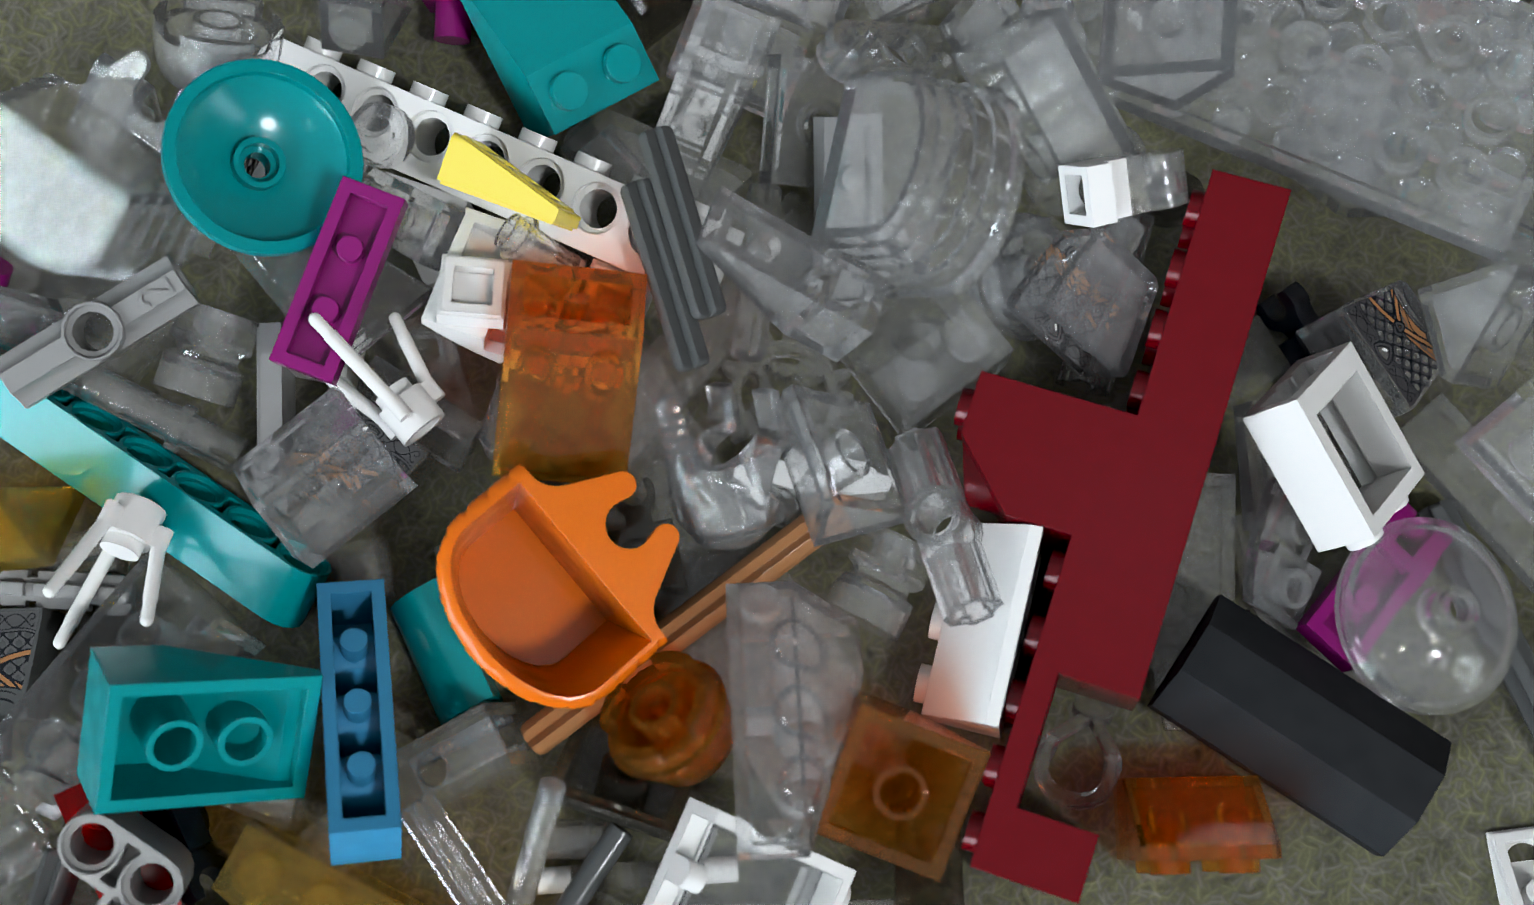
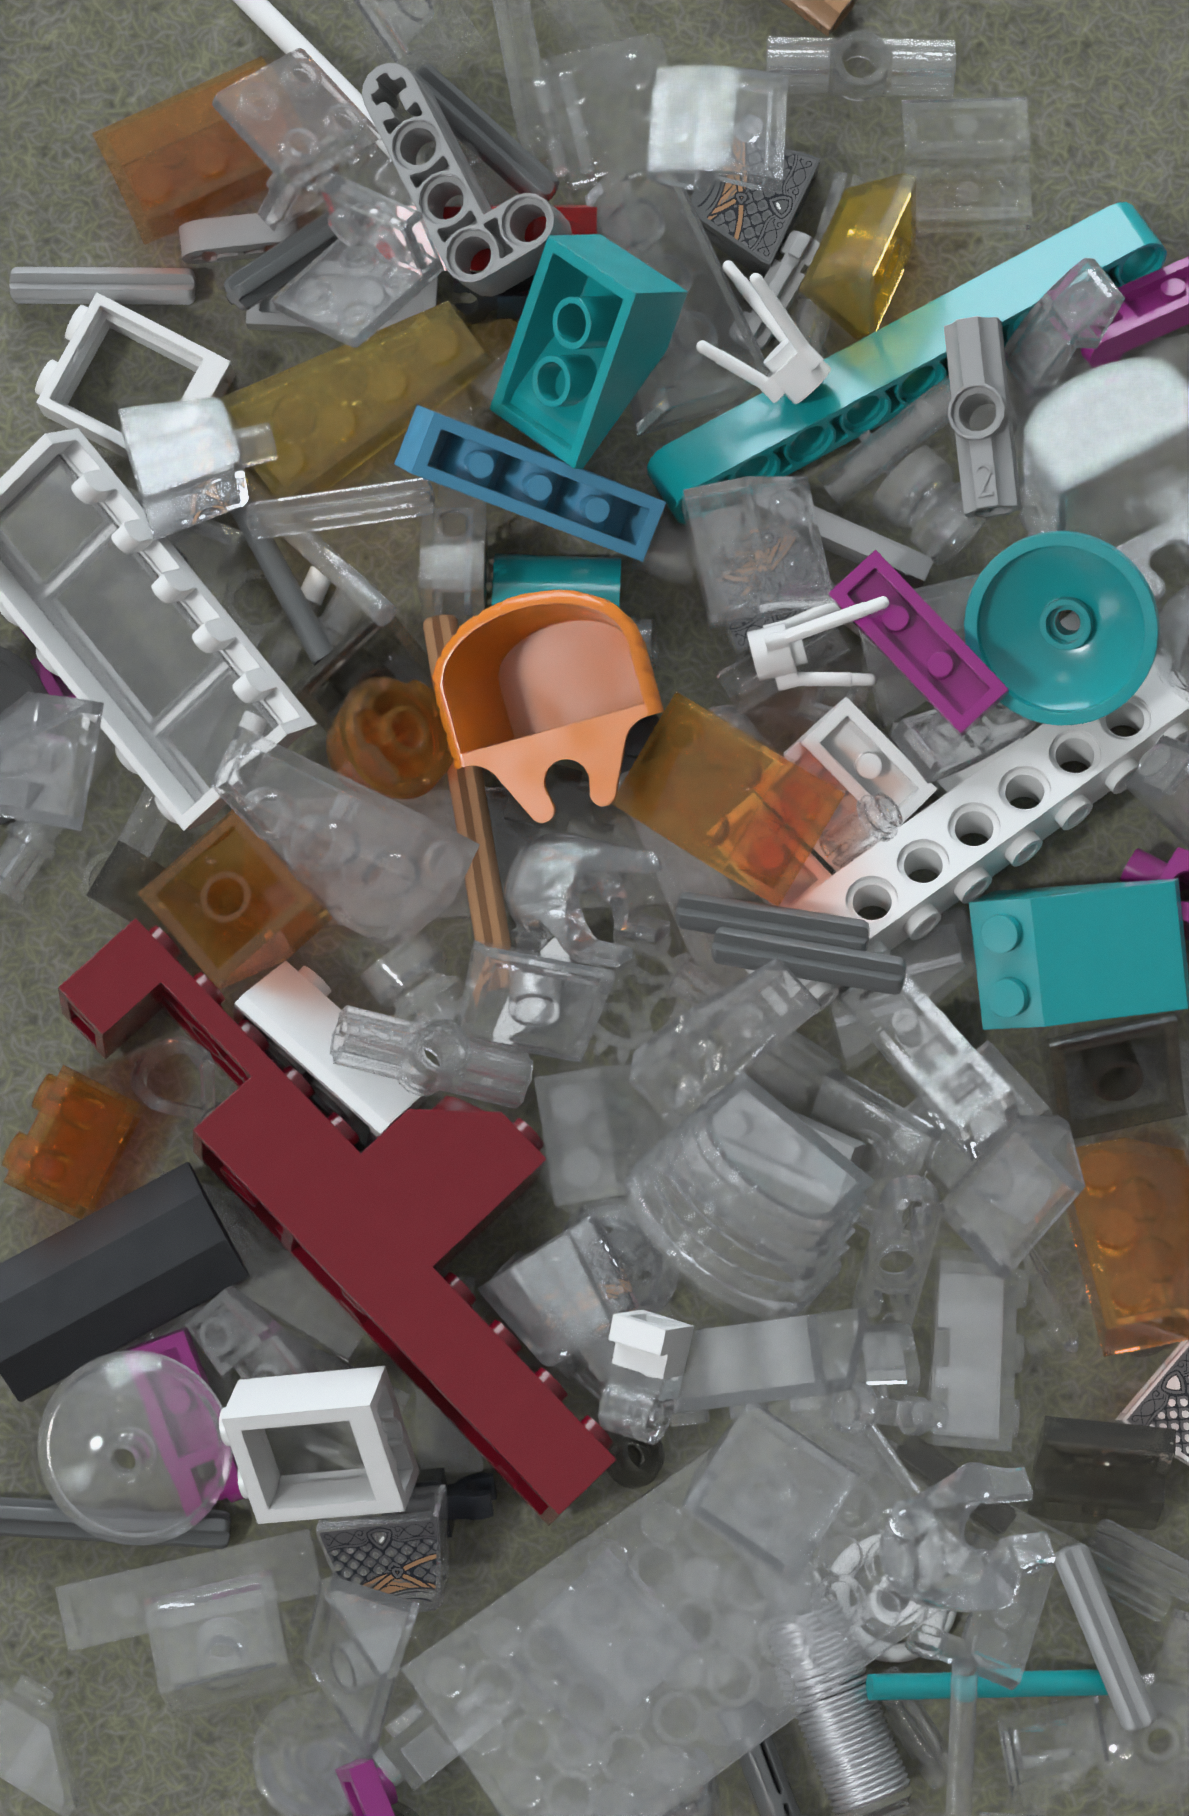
camera: 120 degrees right, 5 degrees up
(384, 134) = (1046, 749): clear tile -> none
(472, 291) = (848, 753): white tile -> none
(486, 175) = (935, 822): light yellow slope -> none

